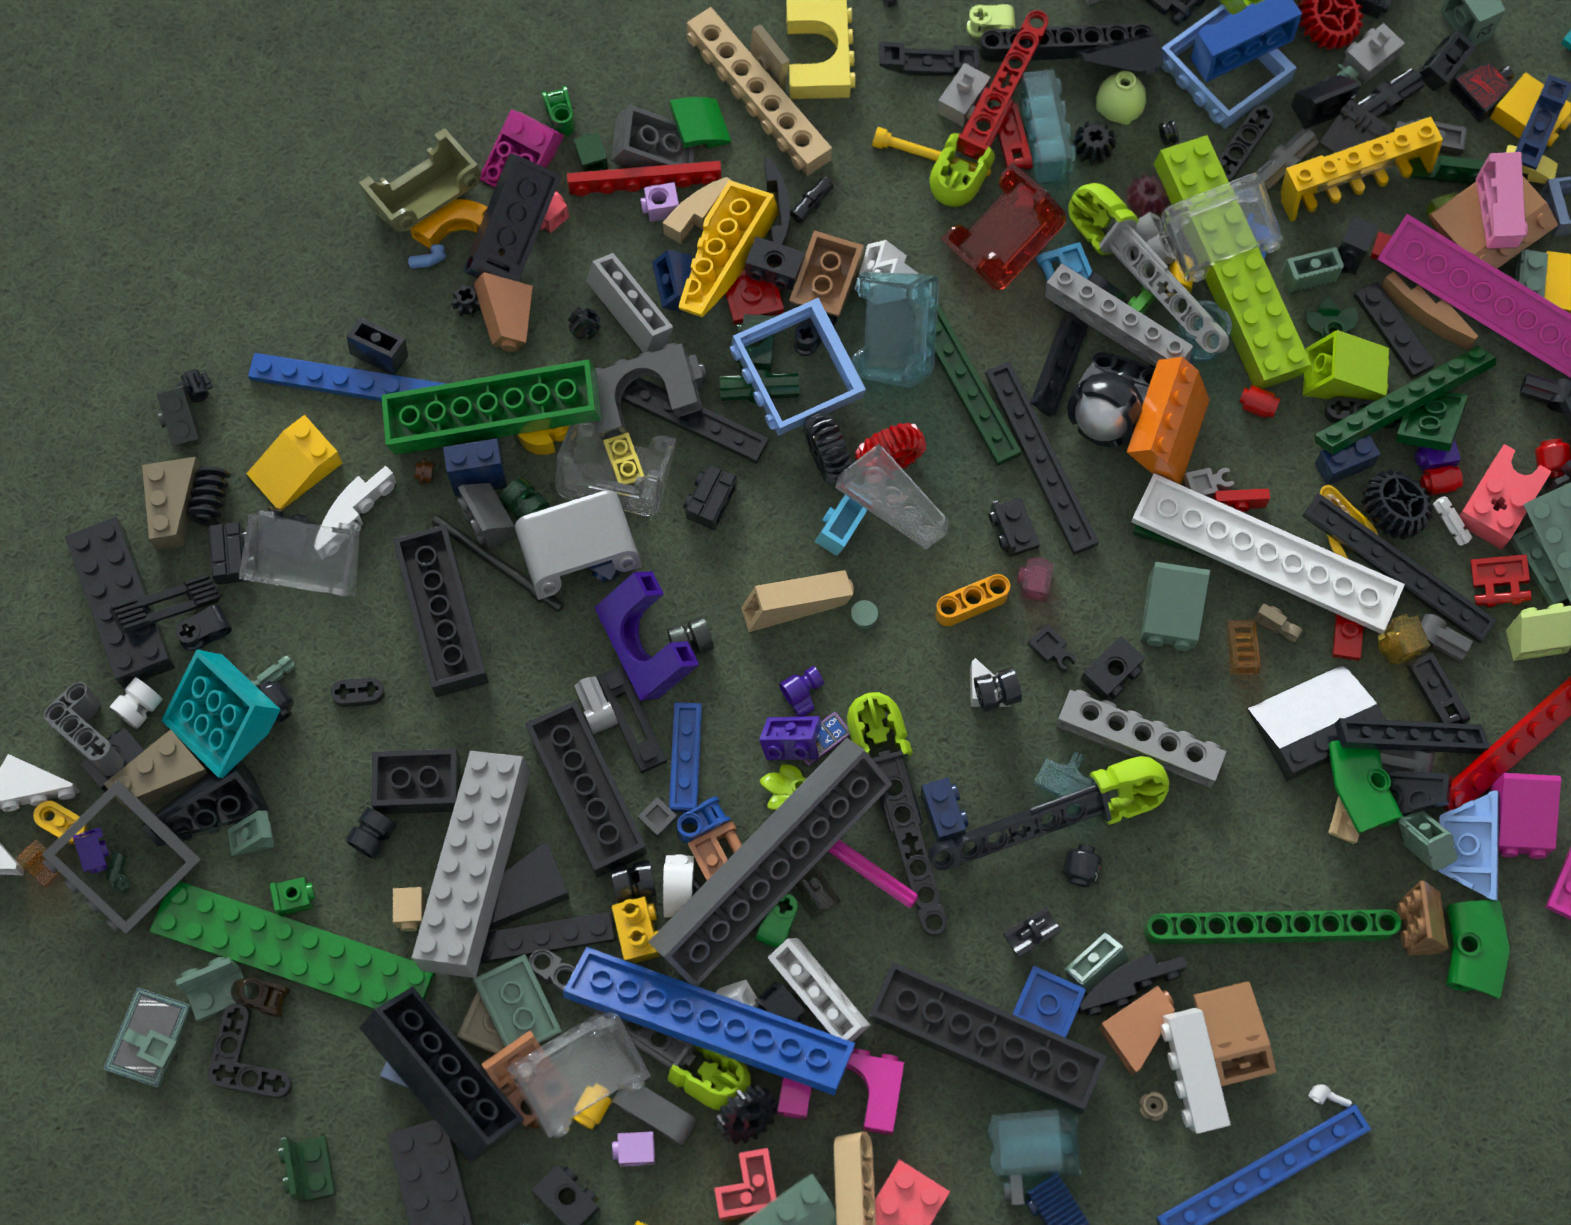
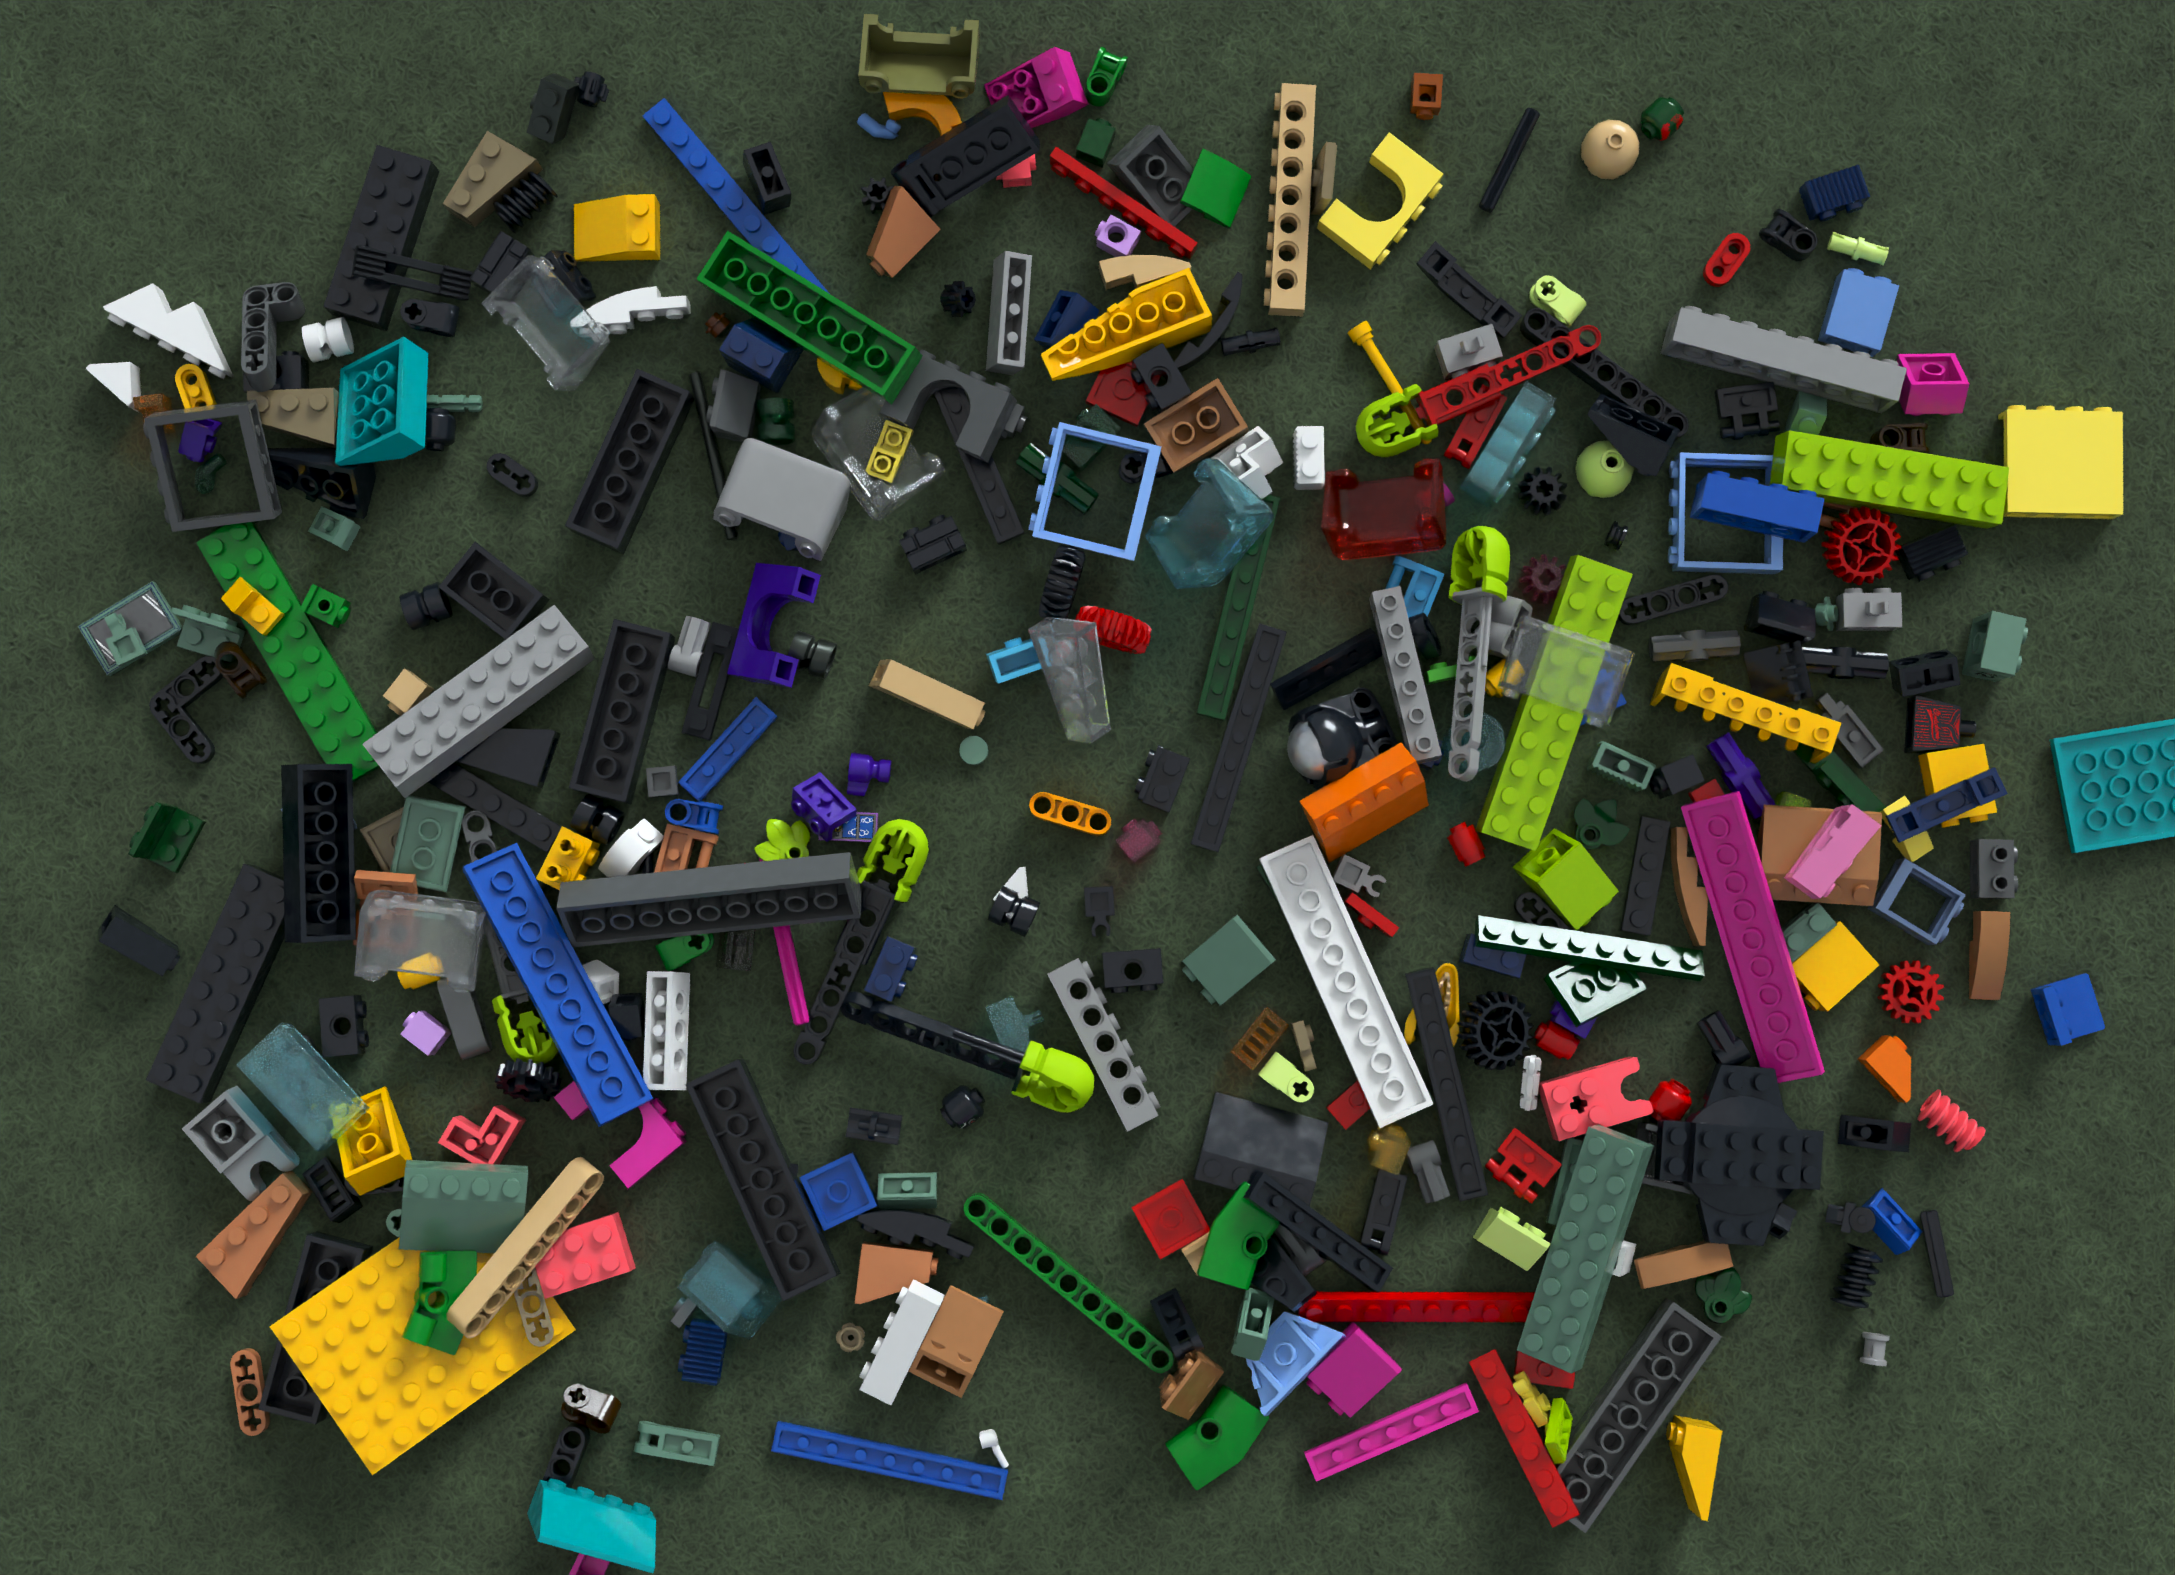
camera: 40 degrees right, 15 degrees up
(234, 939) = (252, 606): none -> yellow slope
(920, 239) = (1309, 458): none -> white brick
(1285, 656) = (1283, 1075): none -> yellowish green piece
(1300, 820) = (1171, 1218): none -> red plate
(1377, 884) = (1176, 1323): none -> black plate
(1388, 213) = (1740, 774): none -> dark purple piece

